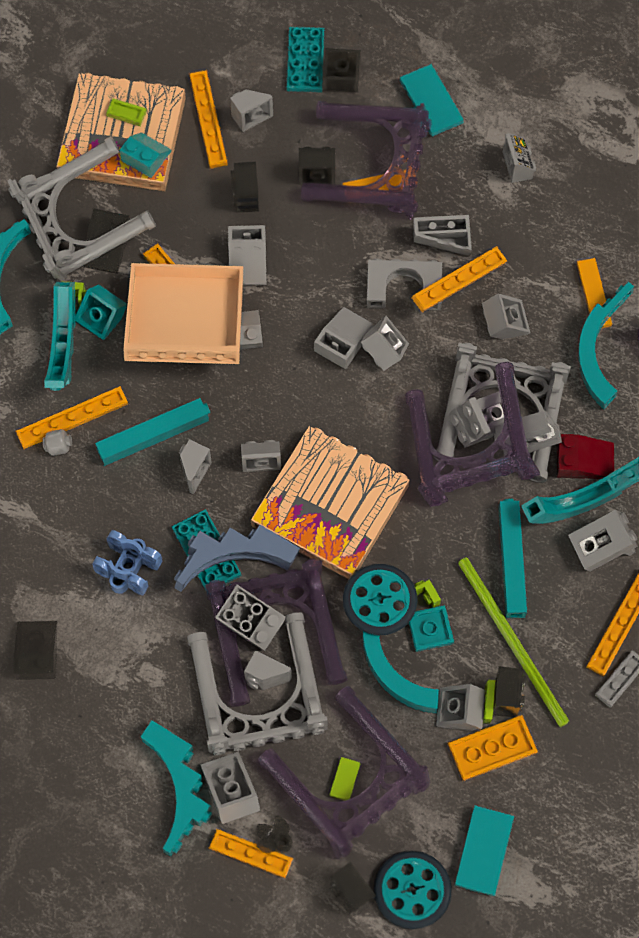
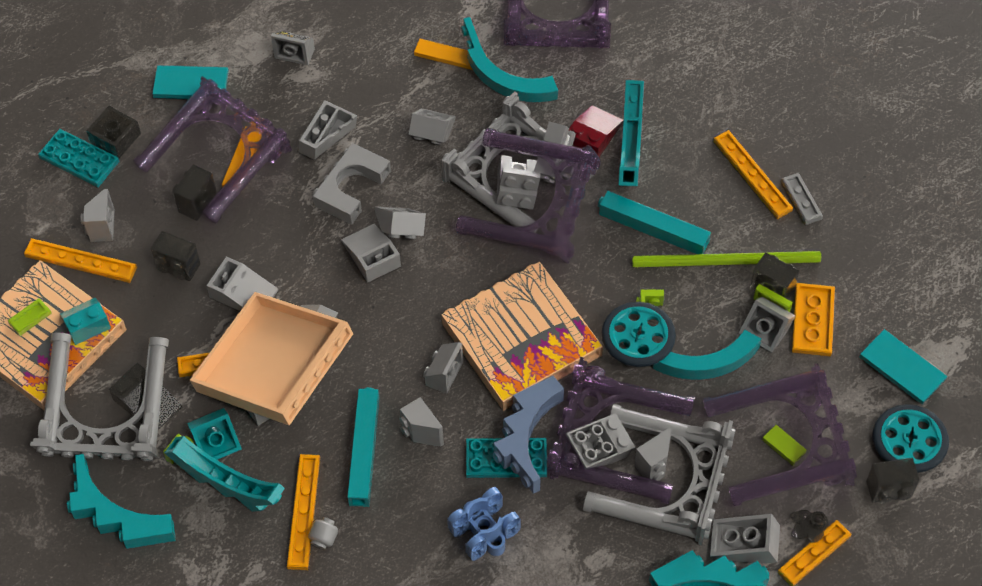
camera: 60 degrees left, 10 degrees down
(431, 629) = (684, 313): teal tile -> none
(459, 279) = (376, 139): light orange tile -> none
(618, 531) = (679, 132): light grey brick -> none

